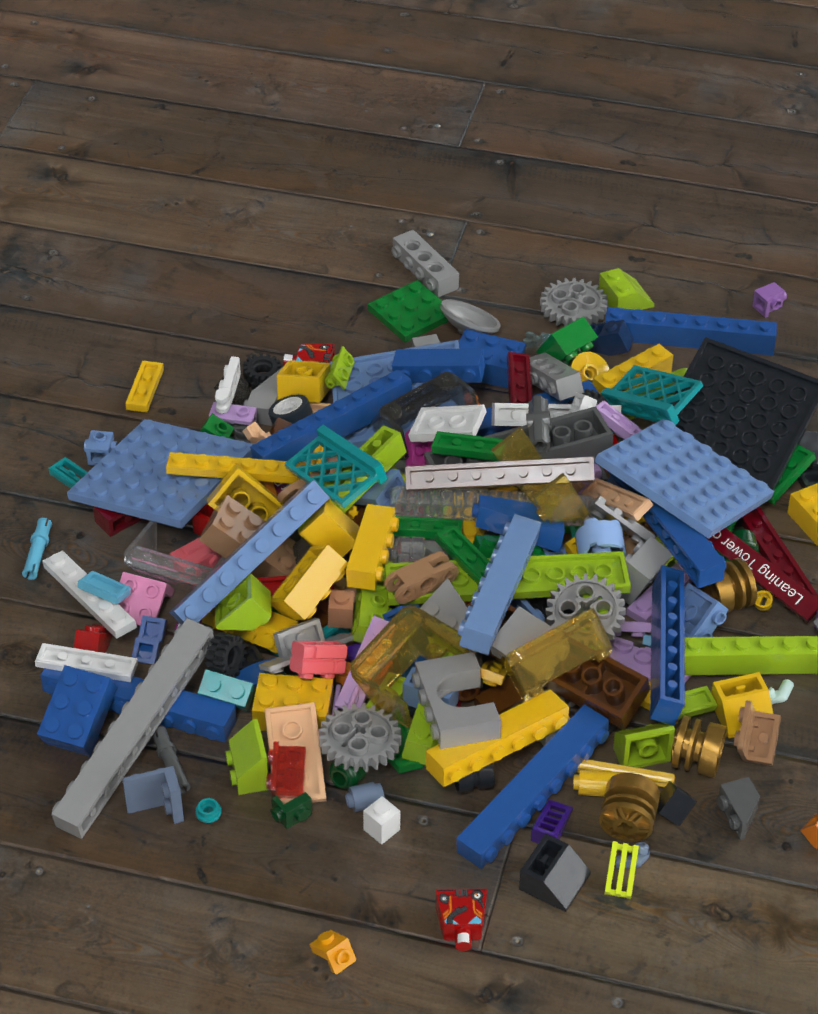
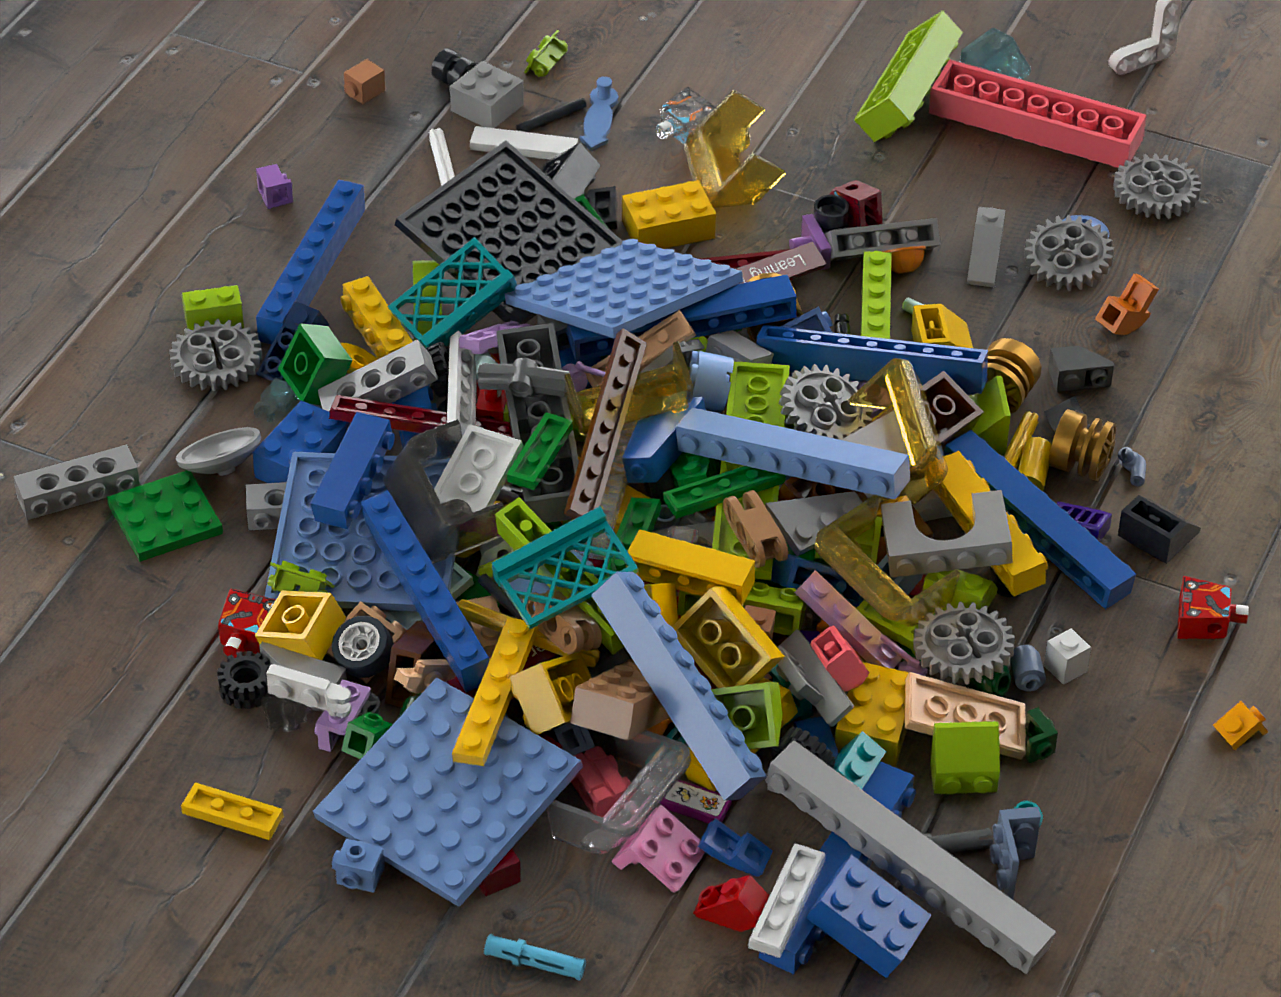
camera: 80 degrees left, 0 degrees up
(66, 476) = (394, 914): teal tile -> none
(104, 587) = (656, 869): medium azure tile -> none
(110, 615) = (642, 900): white plate -> none
(287, 770) = (1012, 724): clear red bracket -> none
(582, 402) = (474, 351): white bracket -> none
(624, 848) = (1155, 473): neon yellow tile -> none
(757, 736) = (988, 324): medium nougat bracket -> none

